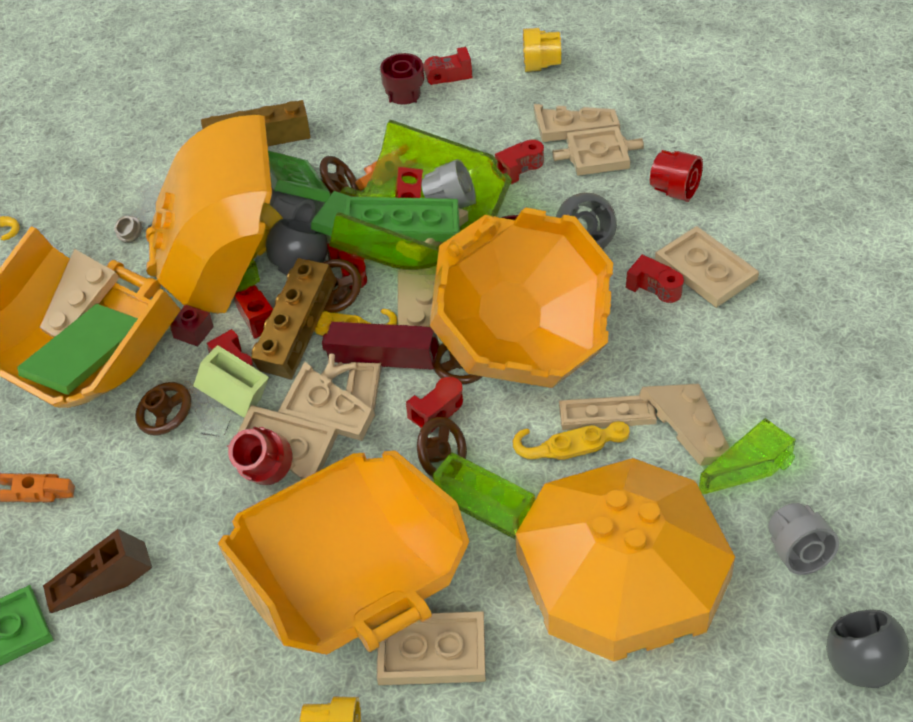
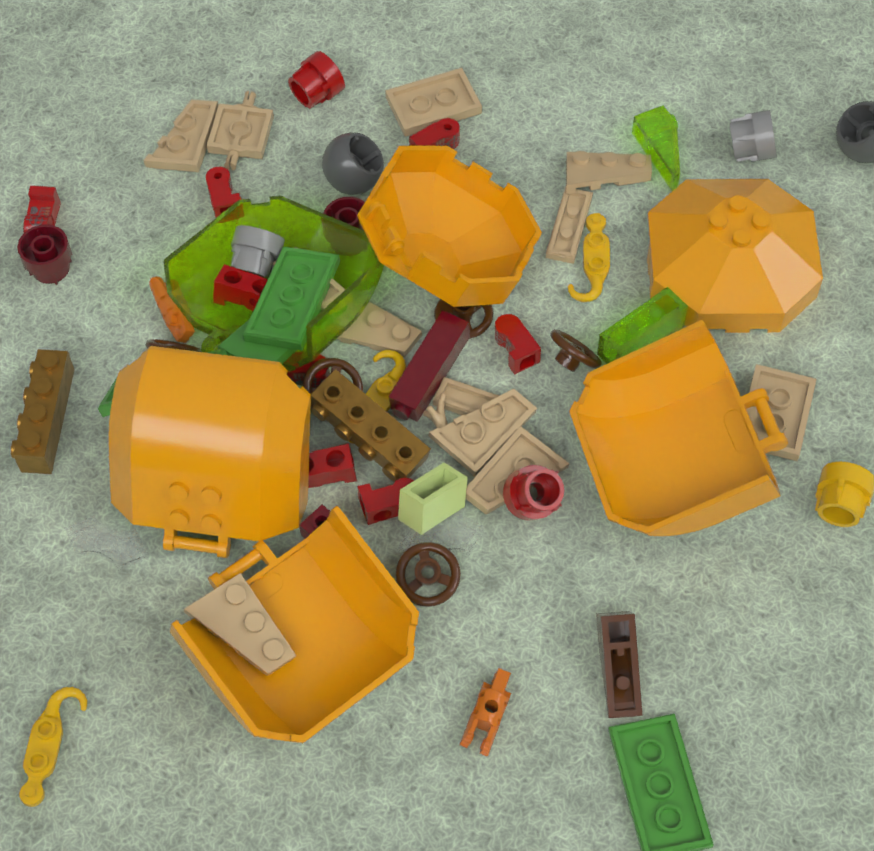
camera: 75 degrees left, 10 degrees up
(78, 349) = (339, 623): bright green tile -> none
(128, 228) = (140, 569): dark tan plate -> none
(540, 49) = (69, 125): yellow piece -> none

